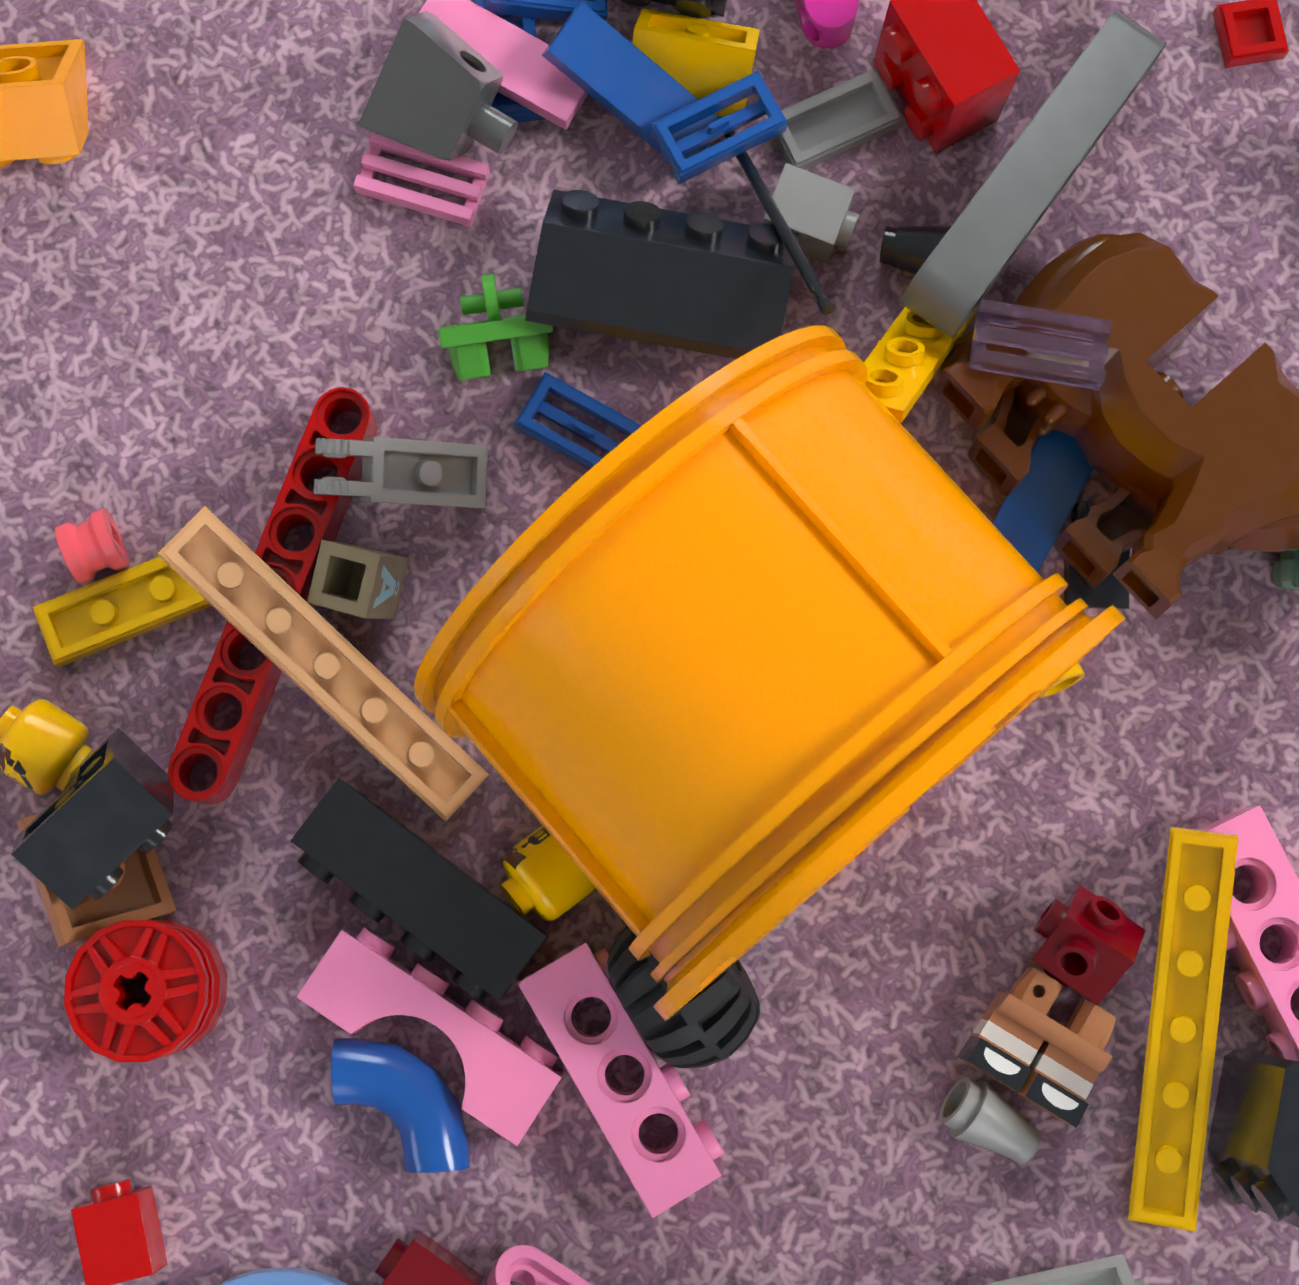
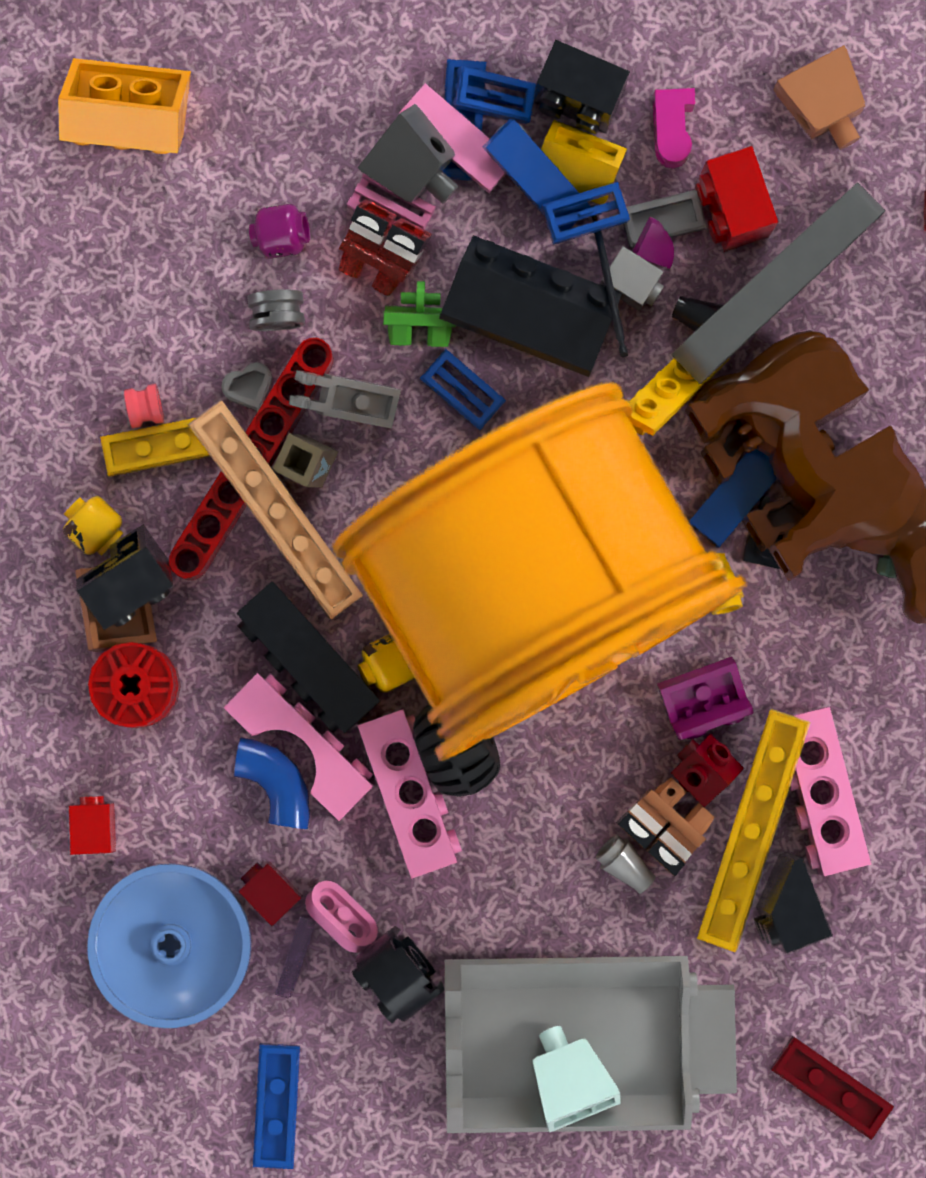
camera: 10 degrees right, 5 degrees up
(251, 486) = (248, 387): none -> light grey tile
(257, 242) = (280, 231): none -> magenta head
(272, 359) = (276, 310): none -> flat silver wheel
(417, 228) = (365, 243): none -> clear red hips
(834, 154) = (655, 244): none -> magenta tile
(1046, 322) = (756, 387): clear purple tile -> none
(1058, 832) = (705, 699): none -> magenta bracket

